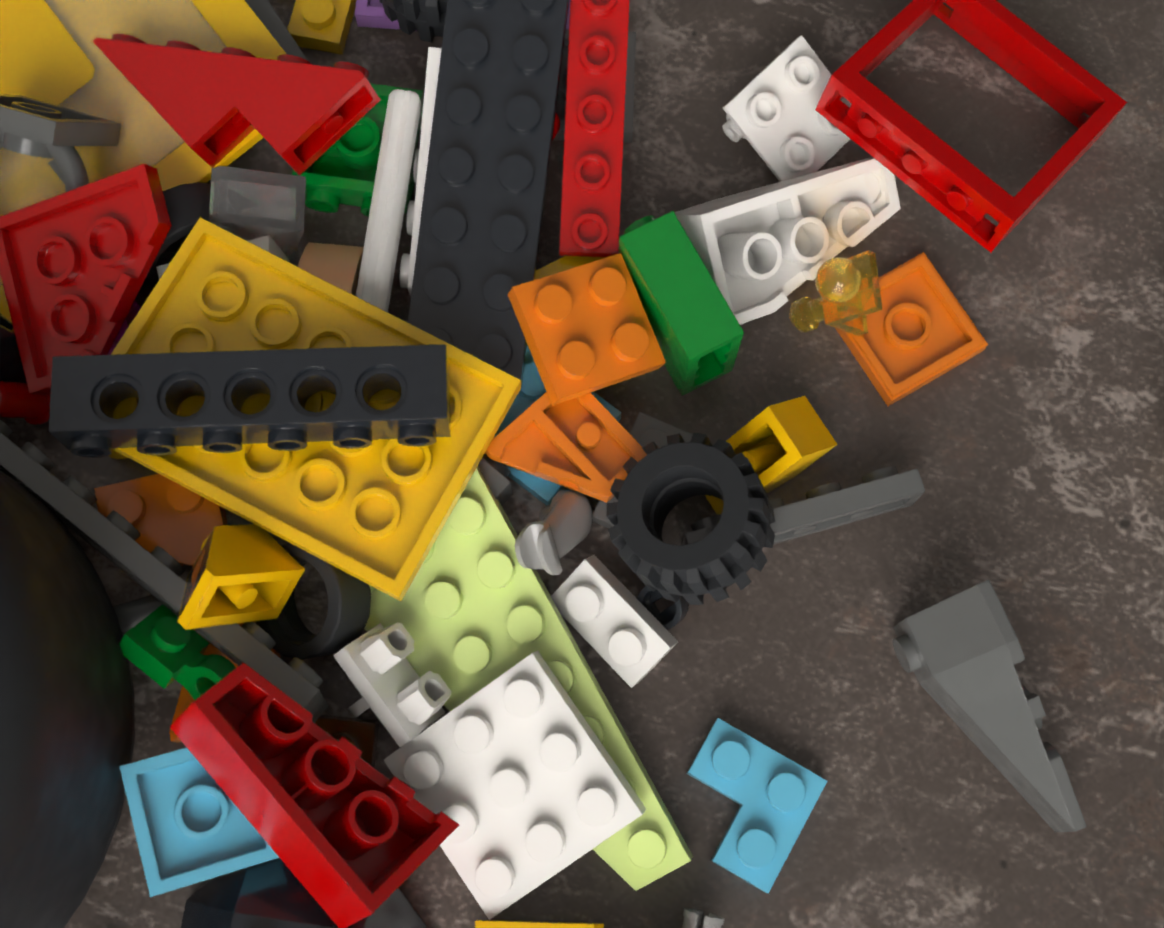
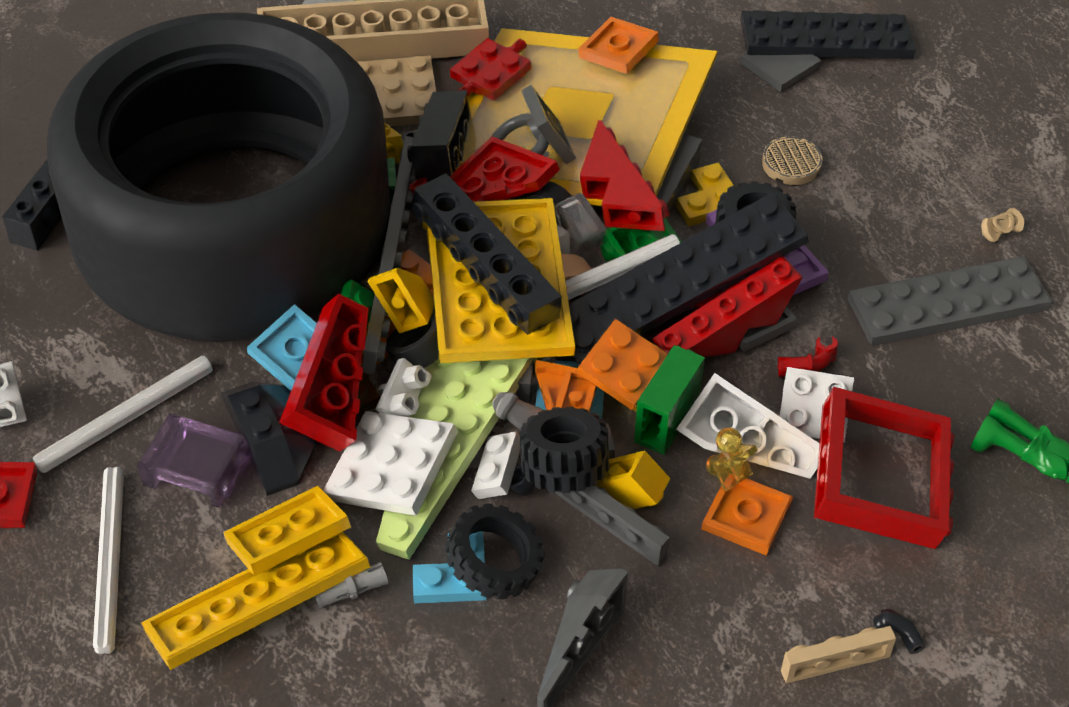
camera: 55 degrees right, 25 degrees down
(720, 70) = (817, 362): none -> red piece
(816, 685) = (483, 577): none -> black tyre

